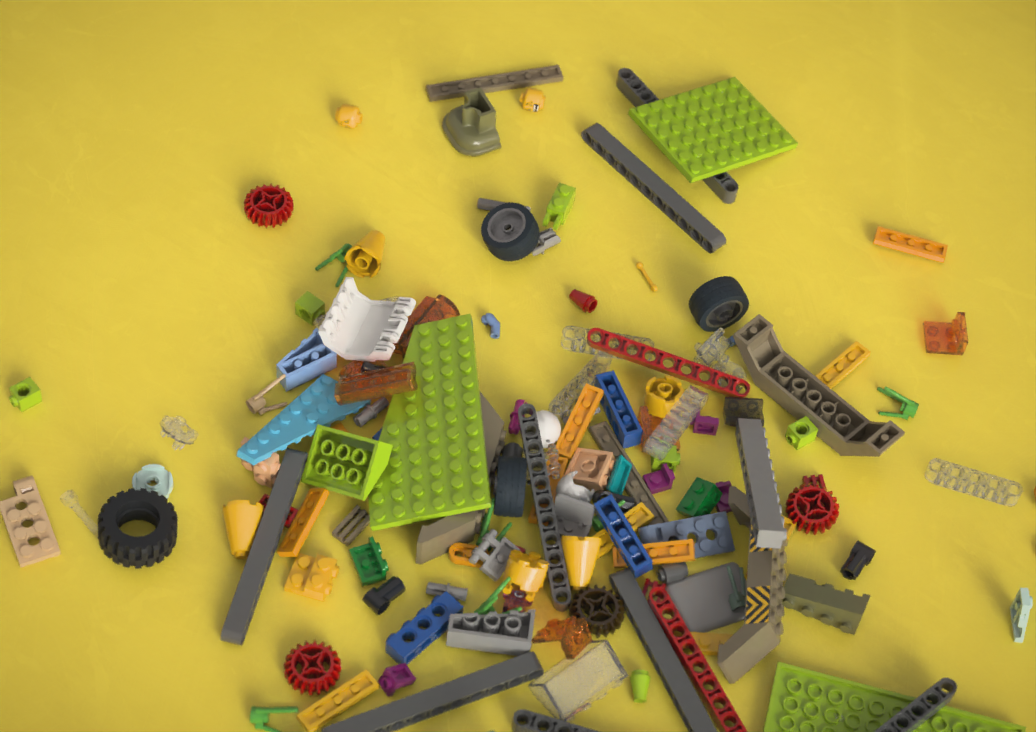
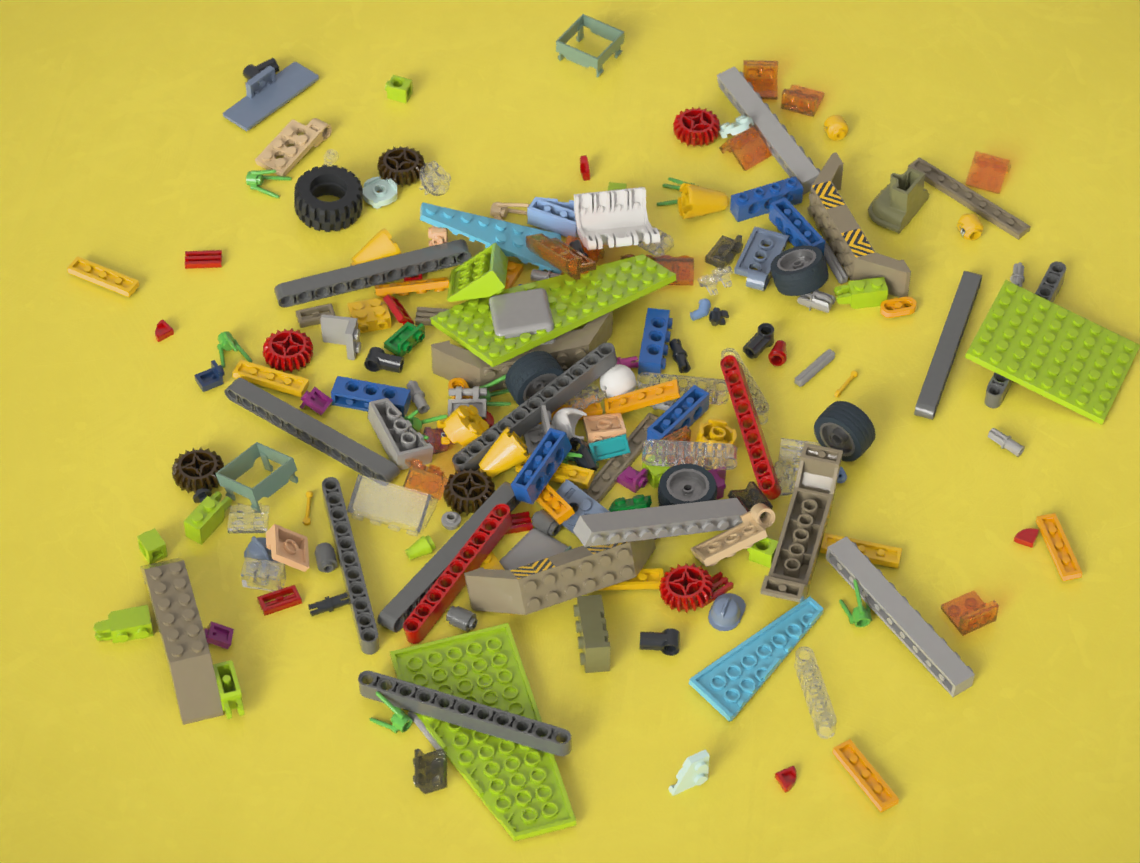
camera: 65 degrees right, 5 degrees down
(49, 576) = (255, 178): none -> bright green plant
(97, 199) = (585, 59): none -> sand green piece
(132, 666) = (203, 259): none -> red tile
(135, 441) = (401, 165): none -> dark brown gear
(248, 133) = (762, 77): none -> clear orange bracket
(252, 311) = (584, 167): none -> red tile
(272, 636) = (314, 315): none -> dark tan tile
(296, 118) = (801, 100): none -> clear orange bracket
(297, 177) = (741, 124): none -> light aqua plate
(315, 159) = (774, 135): none -> light grey brick
(321, 184) = (747, 148): none -> clear orange bracket
(328, 549) = (397, 309): none -> red tile
(335, 601) = (341, 331): none -> light grey bracket
(398, 208) = (758, 200): none -> blue brick
(433, 451) = (521, 313): none -> light grey piece
(438, 270) = (724, 251): none -> clear smoke bracket
(453, 207) = (792, 223): none -> blue brick
(468, 293) = (718, 274): none -> clear plate
(480, 54) = (987, 172): none -> clear orange bracket
(483, 178) = (846, 236): none -> dark tan slope
(488, 262) = (754, 248): none -> sand blue hinge
(510, 377) = (654, 341): none -> blue brick
(511, 318) = (718, 317): none -> black plate
(536, 369) = (679, 355): none -> black pin
(562, 305) = (762, 339): none -> black piece
(587, 195) = (898, 307): none -> light orange plate
(611, 105) = (1017, 276): none -> light grey axle
(615, 286) = (814, 367): none -> light grey axle
(619, 649) = (451, 520): none -> light grey plate
(709, 450) = (686, 485): none -> wheel
(746, 696) = (462, 618): none -> dark grey brick
(775, 420) = (737, 538): none -> tan hinge
(782, 213) = (1006, 442): none -> light grey axle
(849, 495) = (726, 612): none -> sand blue piece
(886, 258) = (1026, 537): none -> red tile
(921, 523) = (743, 670): none -> medium azure wing
(928, 381) = (900, 617): none -> light grey brick

